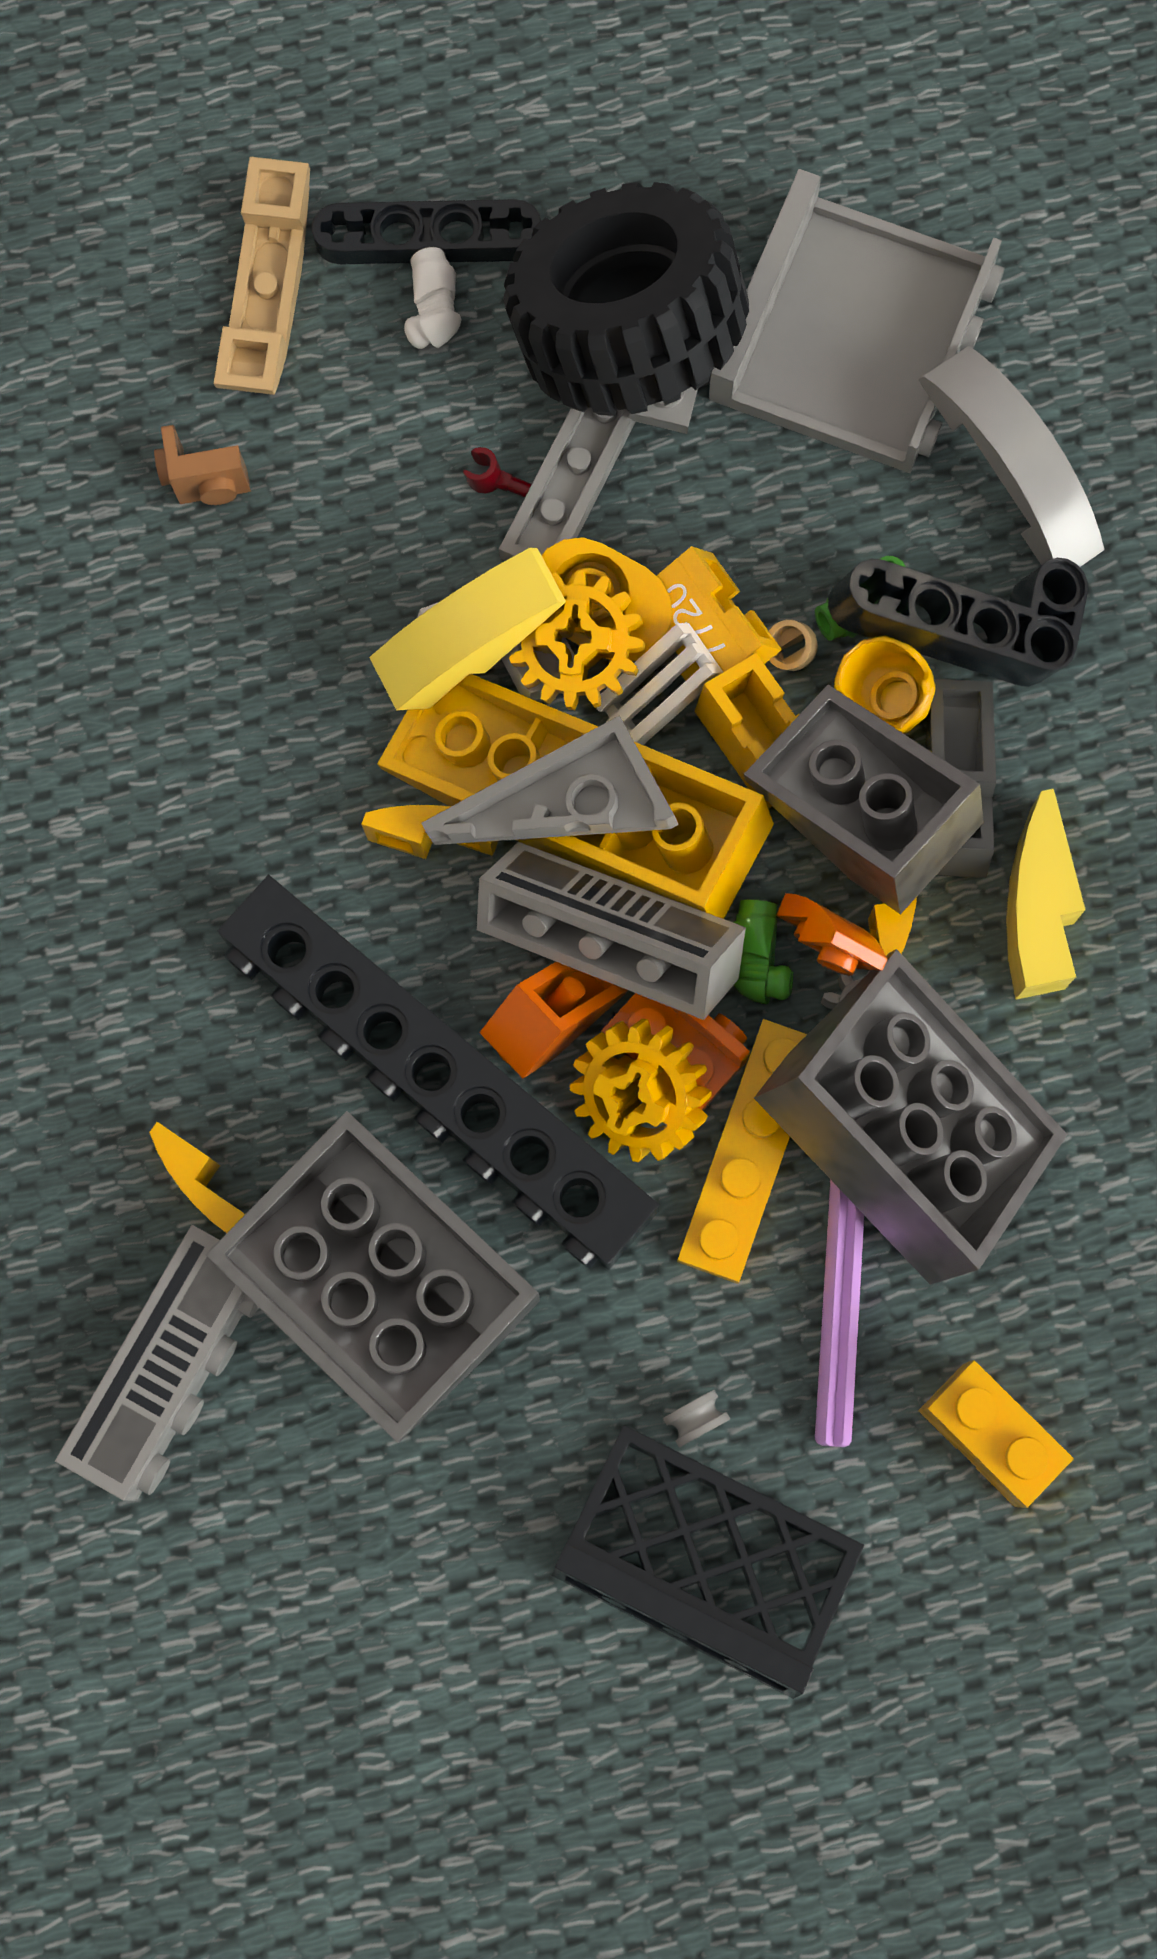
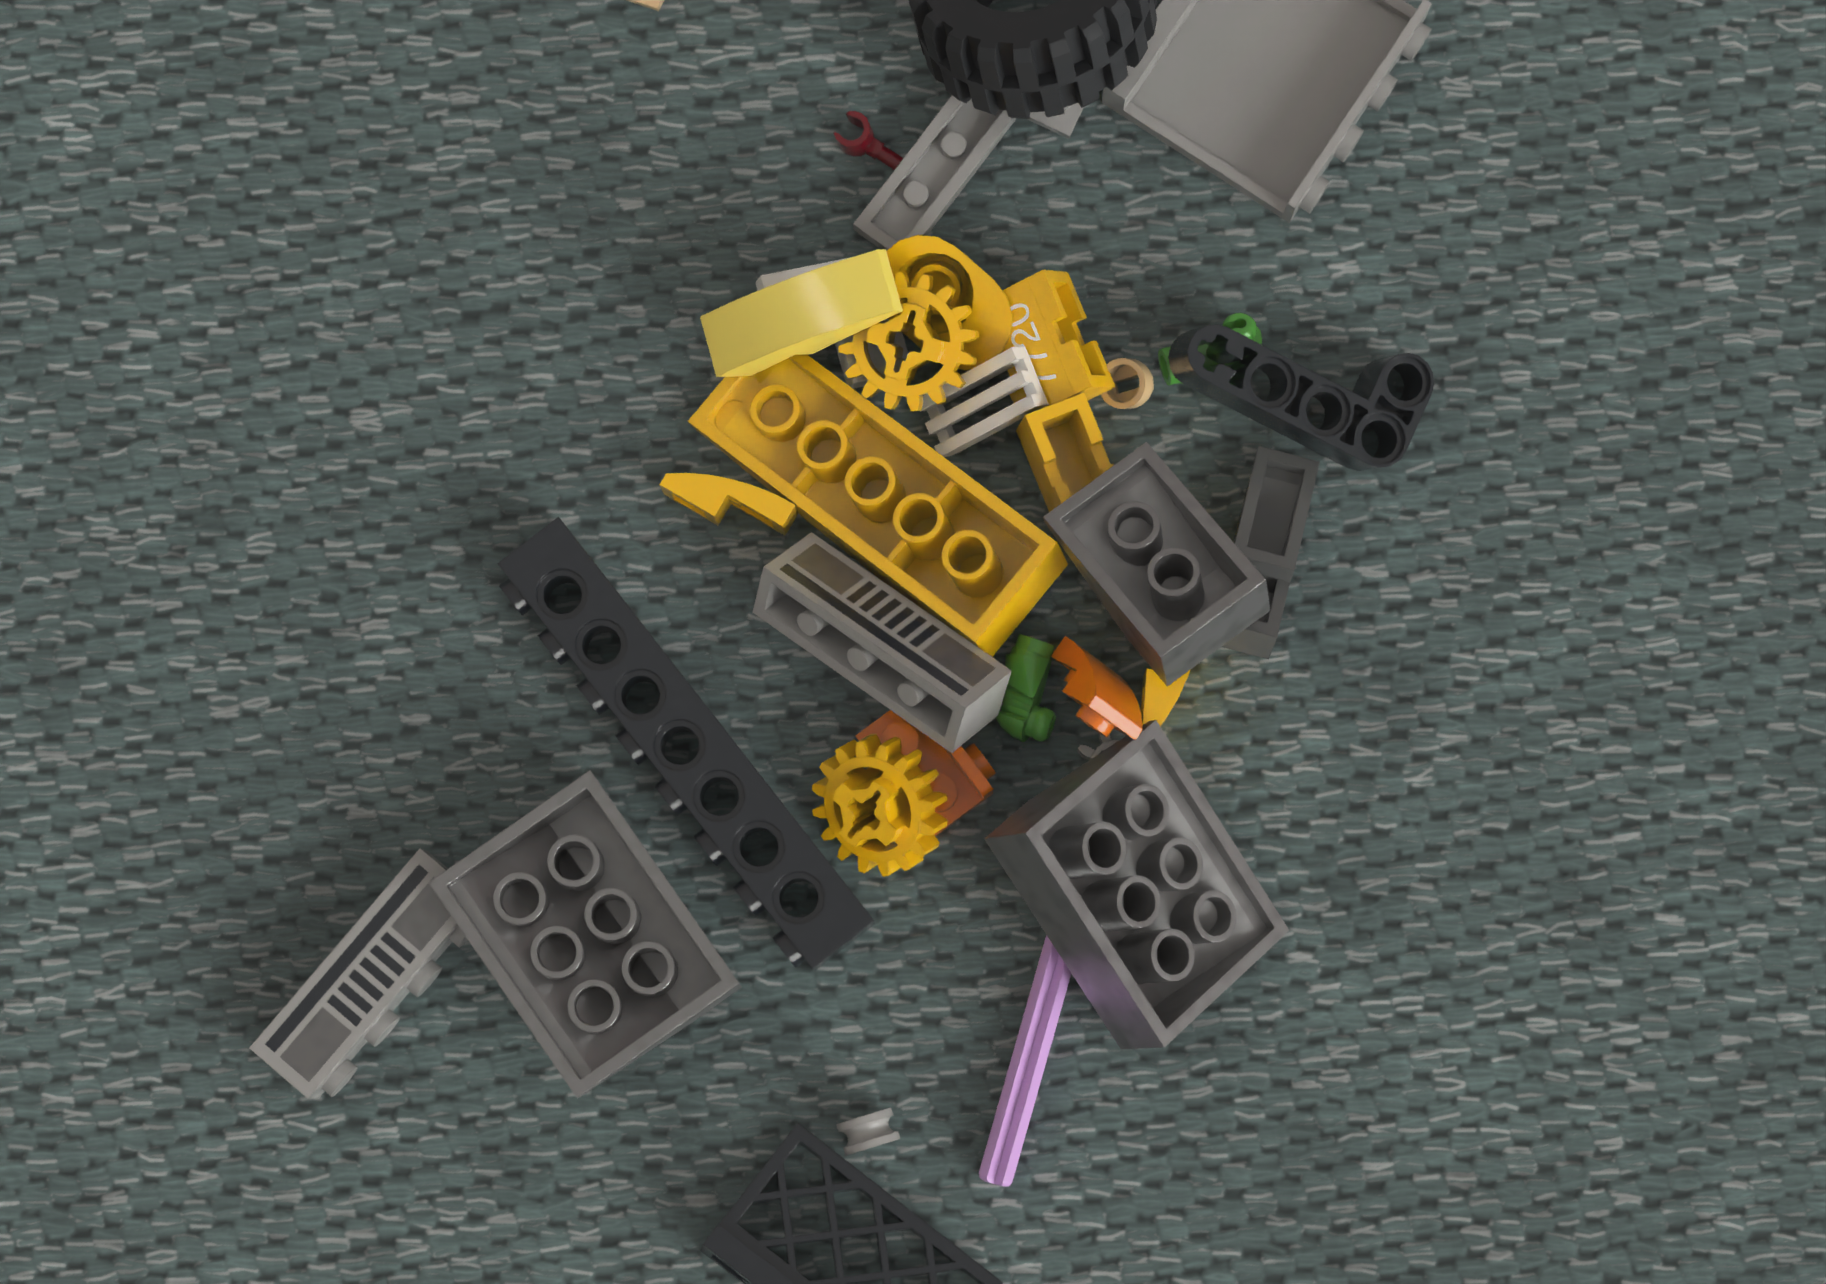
camera: 10 degrees right, 5 degrees up
(192, 1173) = (428, 793): yellow slope -> none
(201, 476) = (576, 87): medium nougat bracket -> none
(547, 1015) = (802, 712): orange slope -> none
(576, 790) = (877, 498): light grey wing -> none
(741, 1167) = (963, 898): yellow plate -> none
(887, 681) = (1210, 446): yellow hair -> none
(996, 1434) = (1149, 1204): yellow brick -> none
(1021, 452) = (1397, 236): light grey slope -> none
(1040, 902) = (1315, 694): light yellow slope -> none

